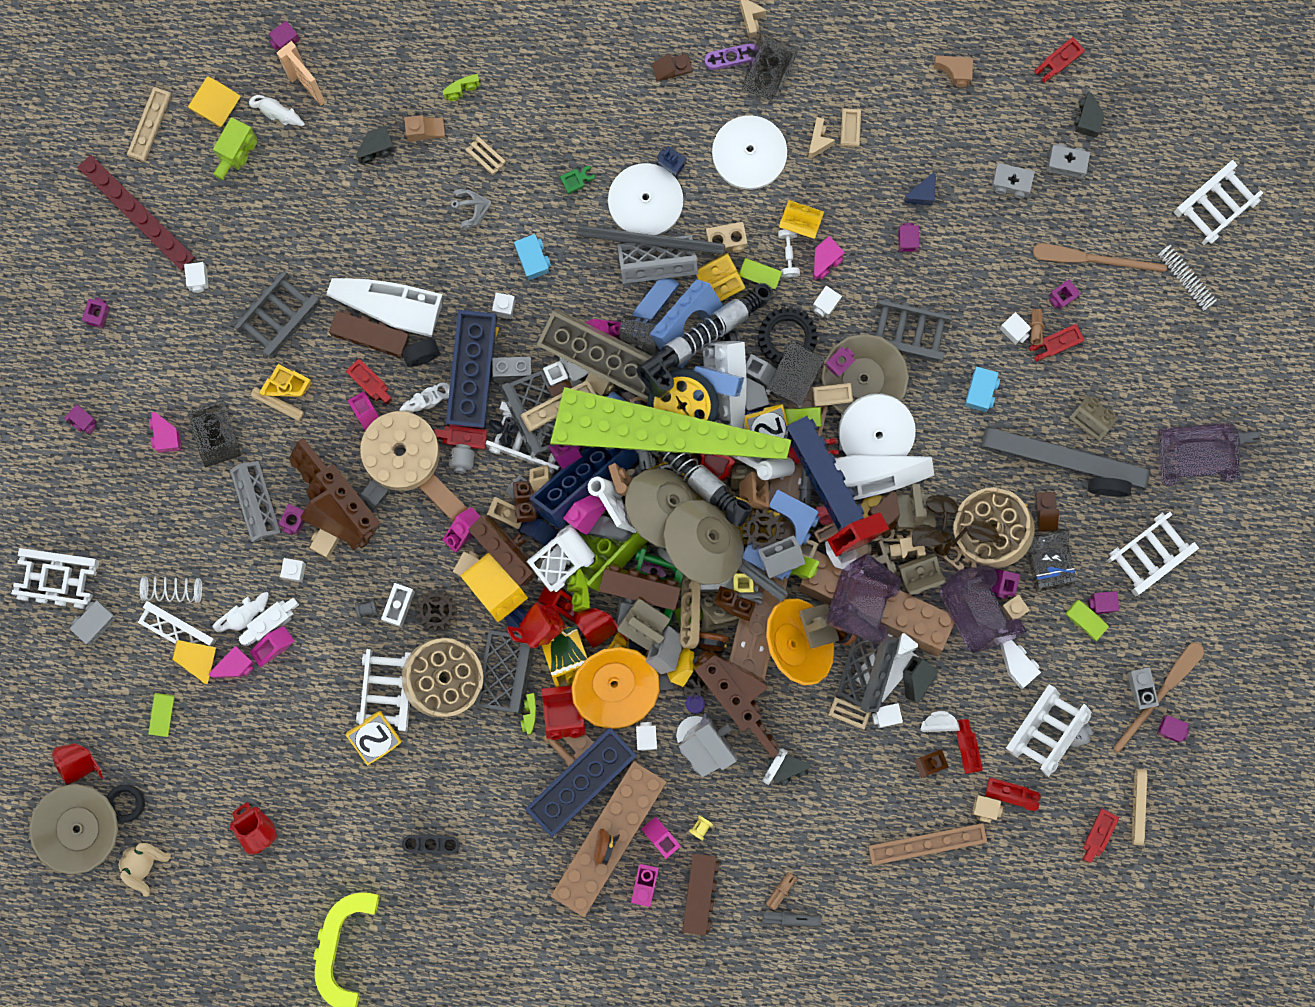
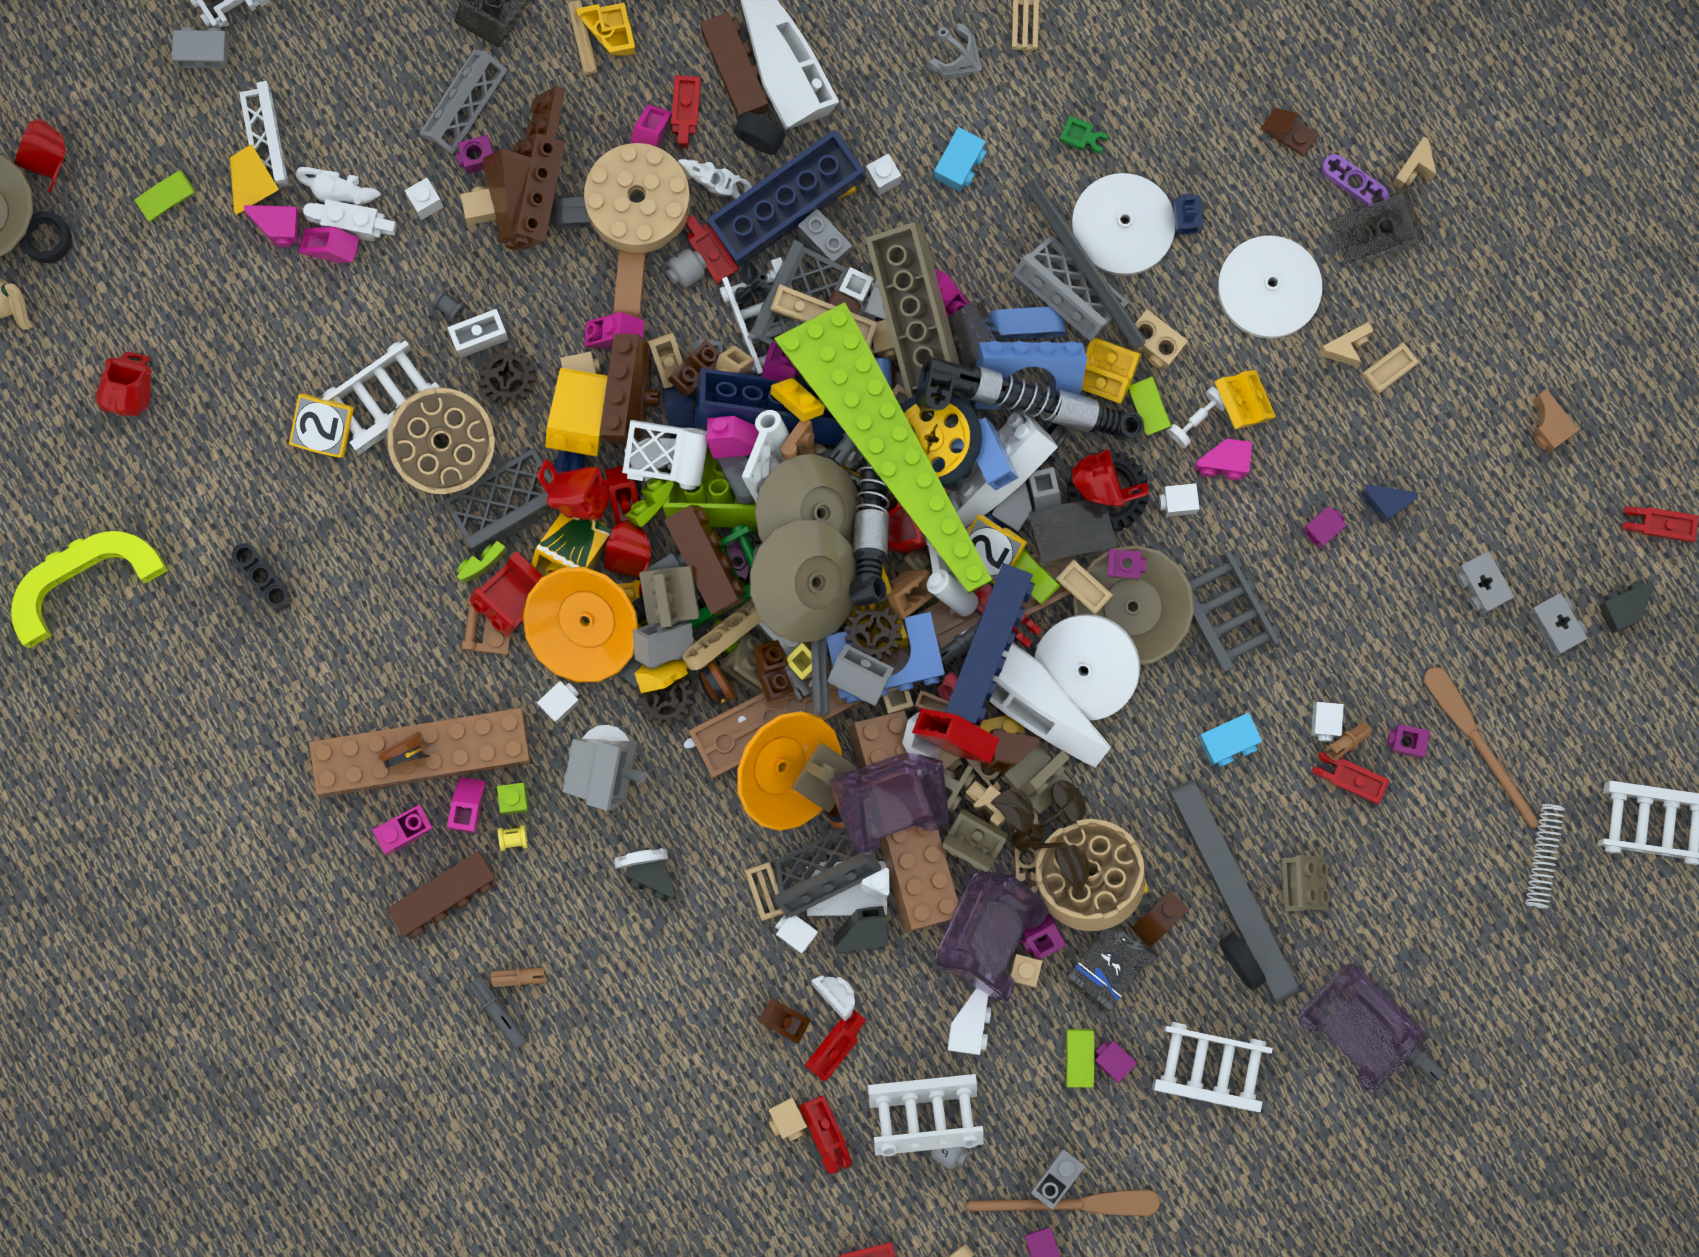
camera: 45 degrees right, 0 degrees up
(197, 590) = (314, 123): white piece -> none
(581, 782) = (453, 674): dark blue brick -> none
(594, 460) = (797, 399): none -> yellow plate
(679, 809) = (513, 799): none -> lime brick
(696, 704) = (637, 723): dark purple tile -> none
(736, 692) = (681, 747): reddish brown wedge -> none
(782, 337) = (1098, 481): none -> red piece
(807, 570) = (873, 715): lime slope -> none
(927, 844) = (696, 1088): medium nougat plate -> none

